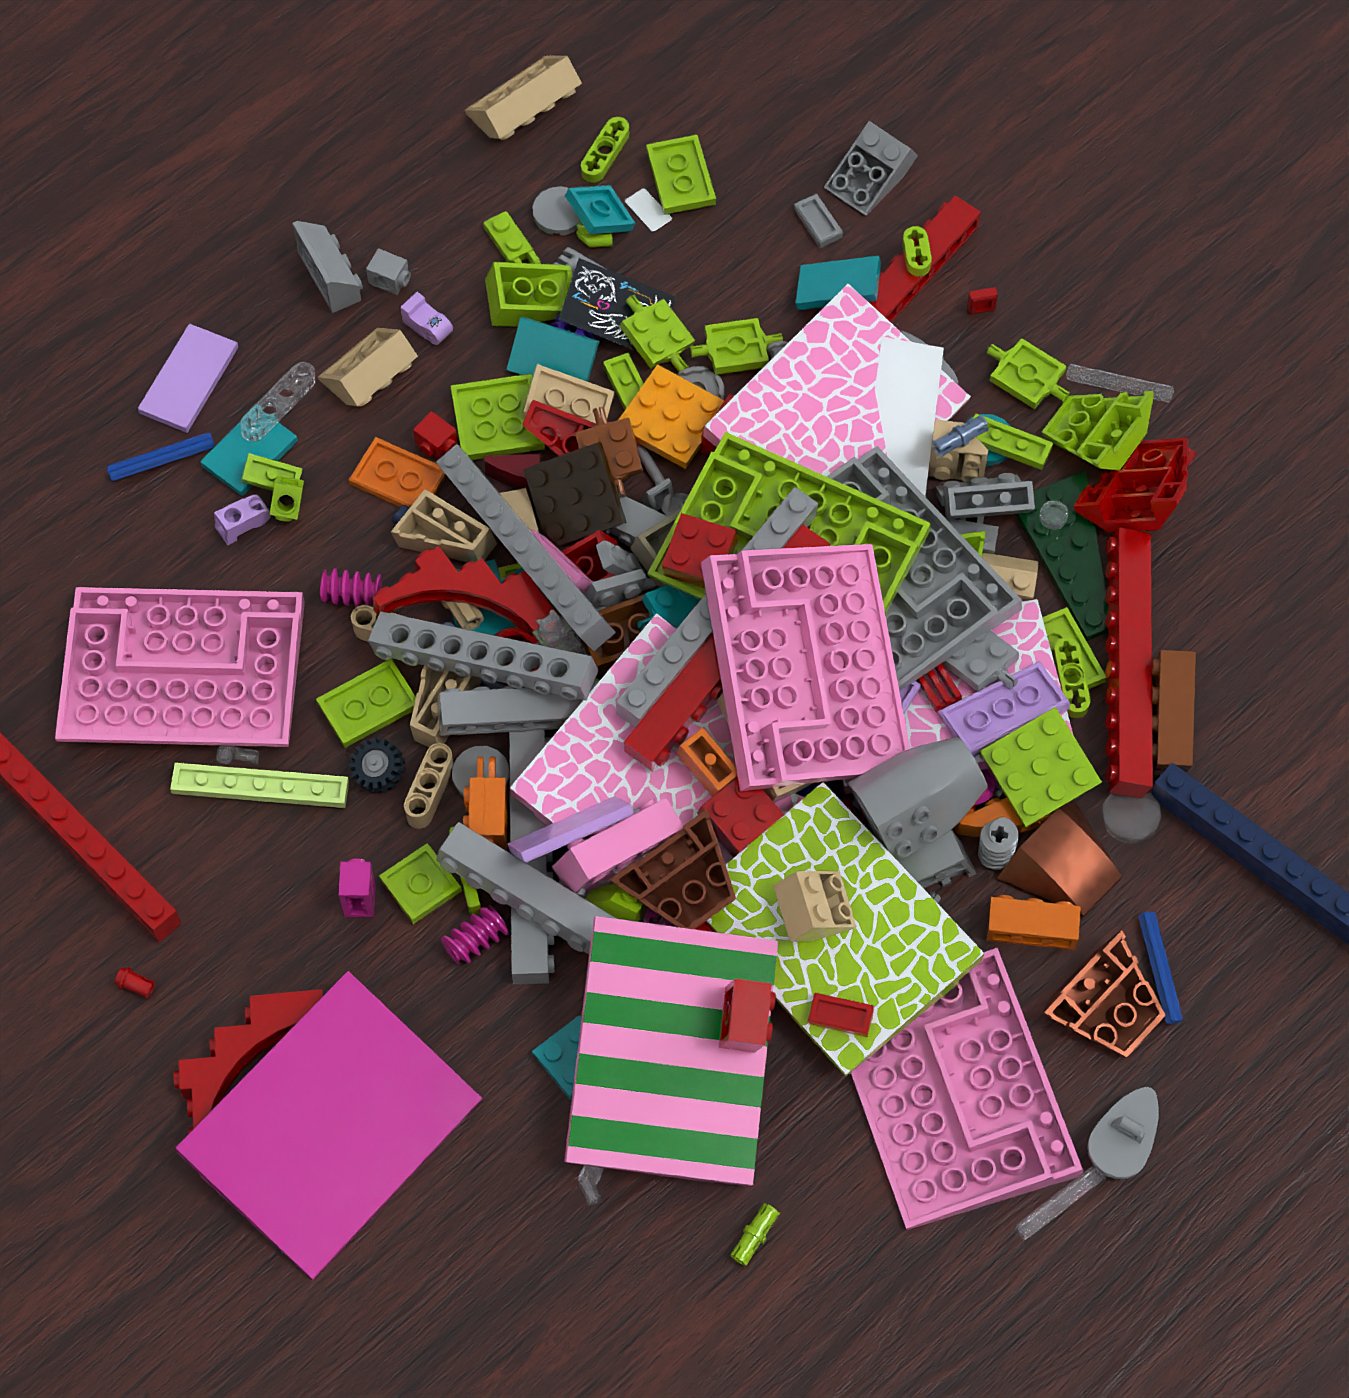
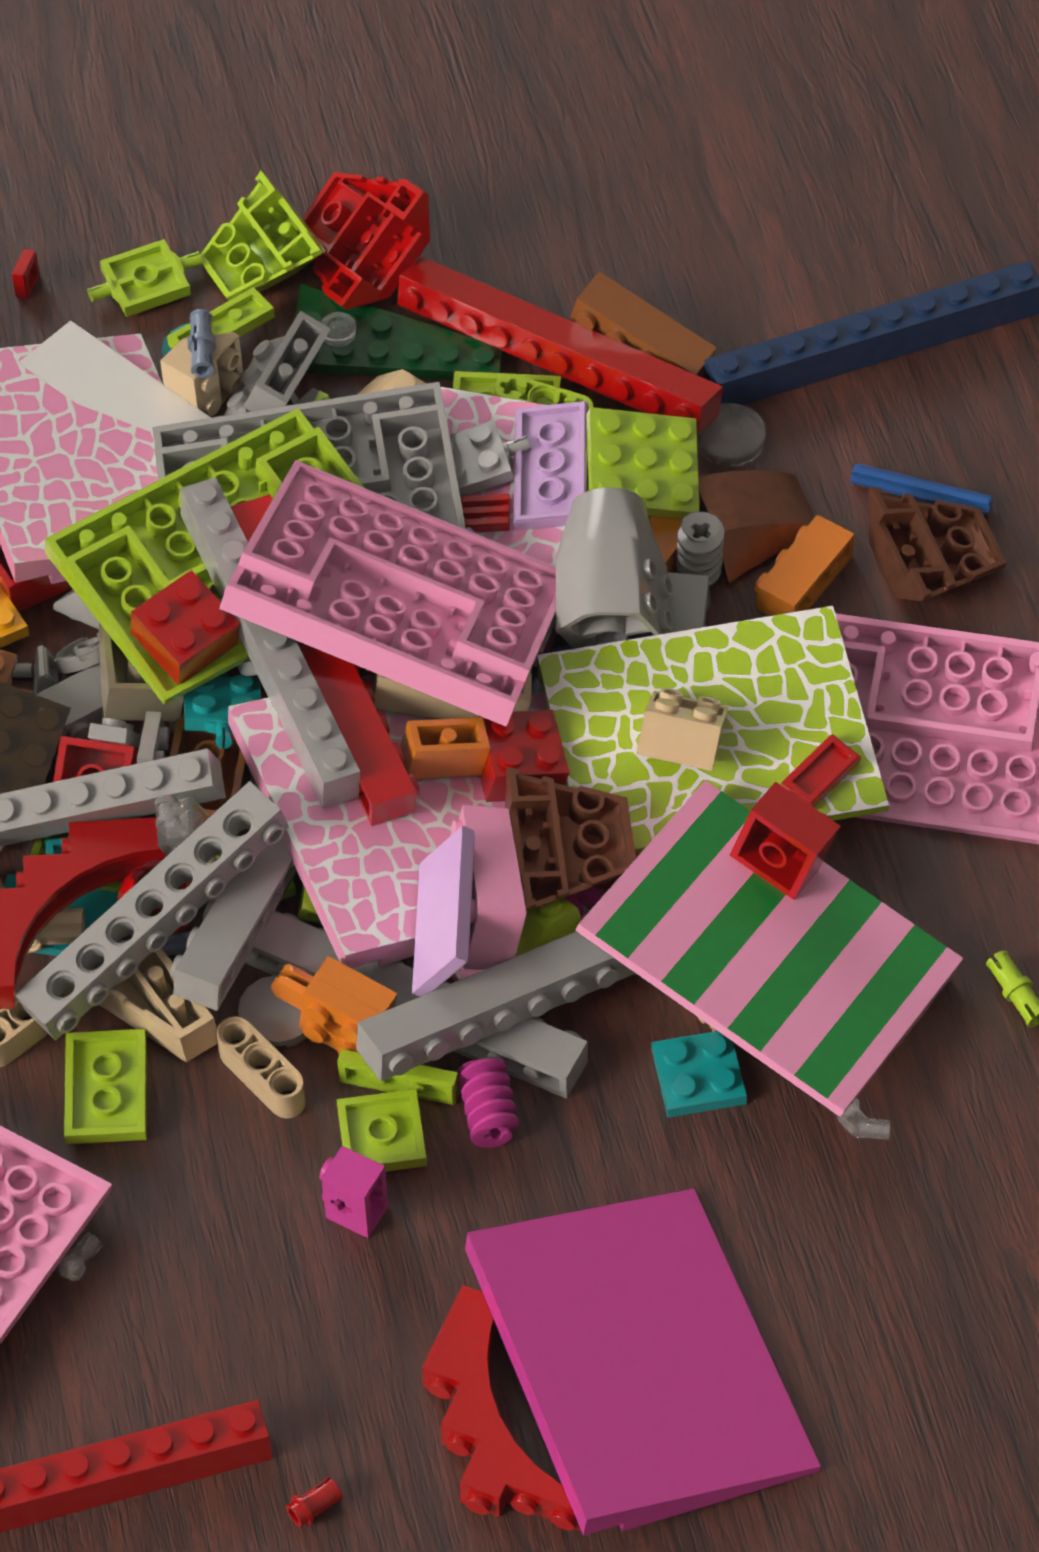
camera: 60 degrees left, 10 degrees down
(259, 785) = (135, 1251): yellowish green plate -> none
(377, 765) = (199, 1108): black wheel -> none
(1118, 382) = (212, 210): clear axle -> none

